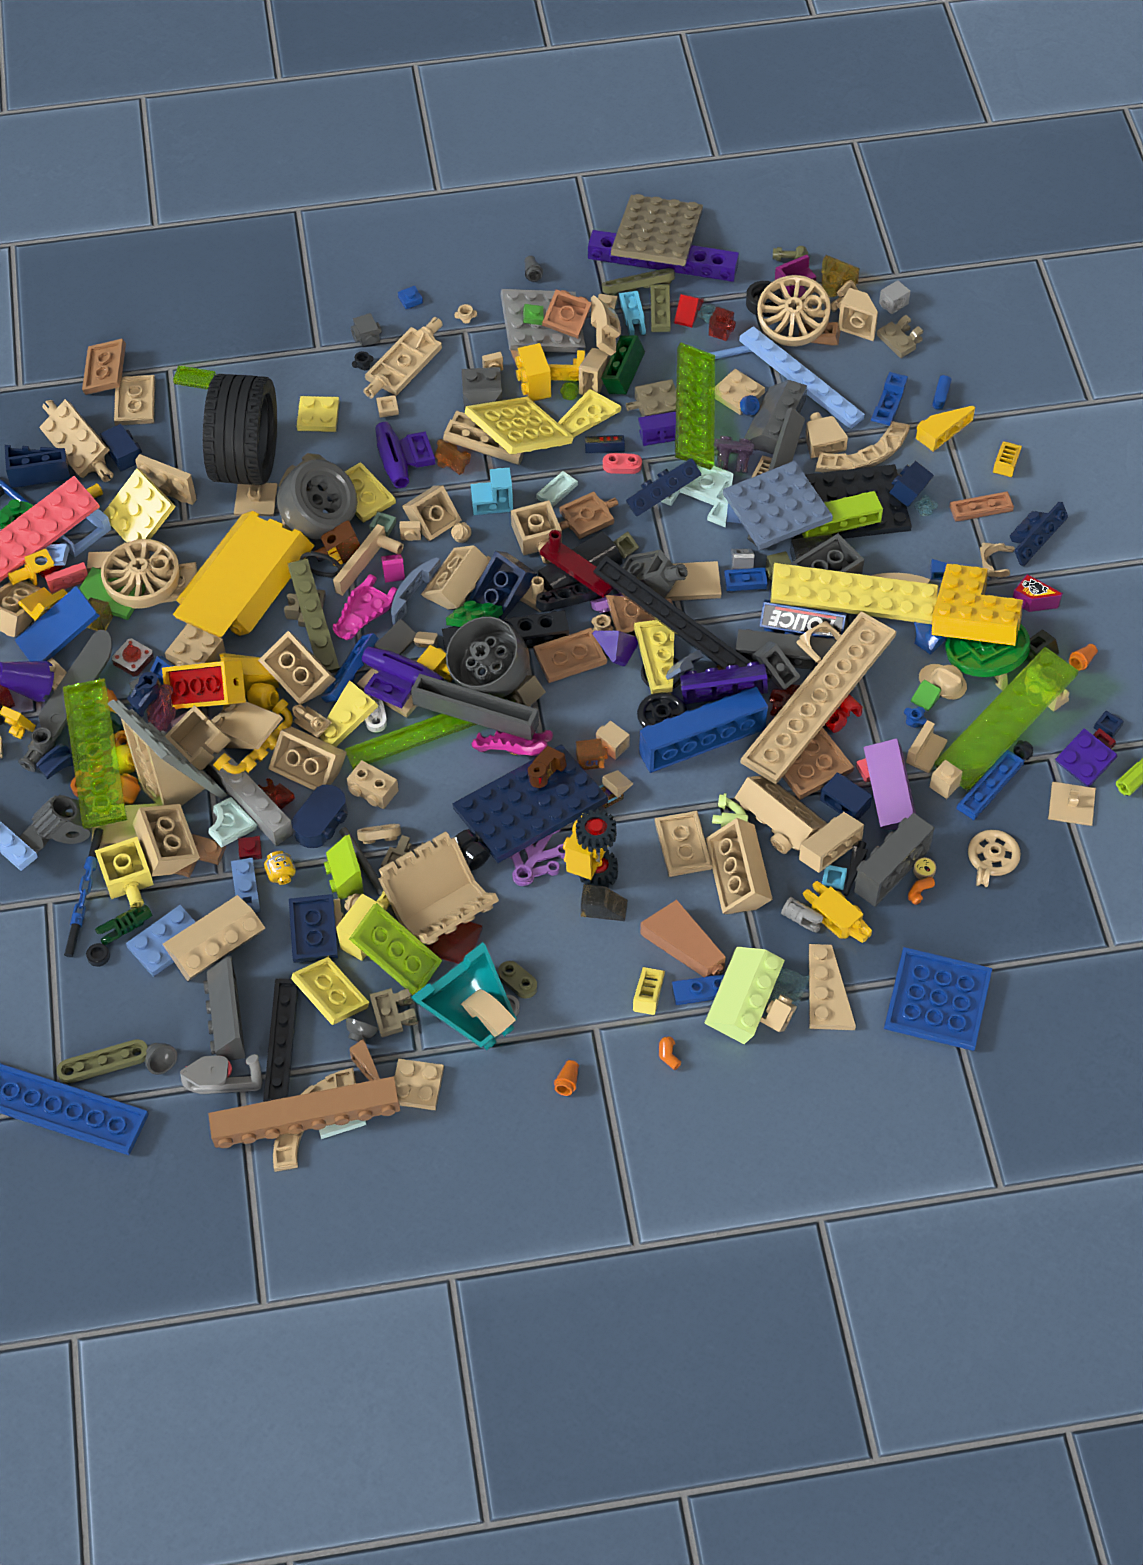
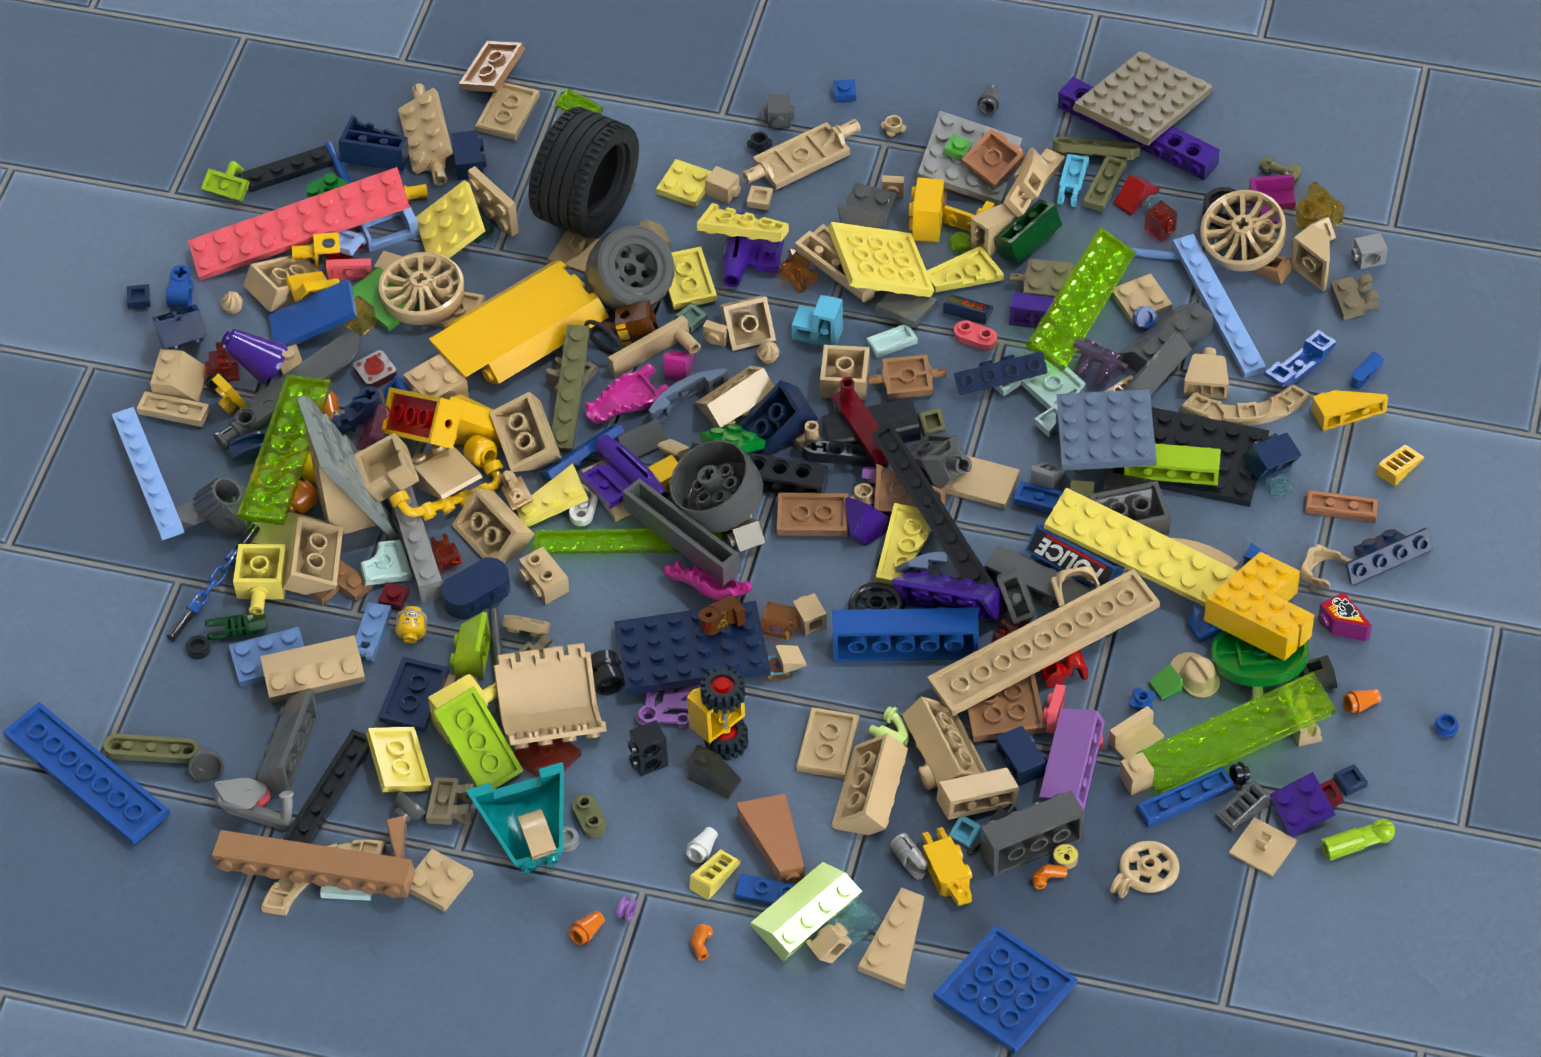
camera: 25 degrees right, 5 degrees down
(352, 405) = (722, 185): none -> tan brick
(392, 432) = (745, 225): none -> light yellow wing
(542, 902) = (648, 748): none -> black brick
(555, 458) = (906, 307): none -> dark grey tile
(592, 1048) = (626, 908): none -> medium lavender bush
(627, 972) = (701, 846): none -> white cone
(855, 751) = (1054, 705): none -> coral plate
(1047, 764) = (1254, 795): none -> dark grey slope

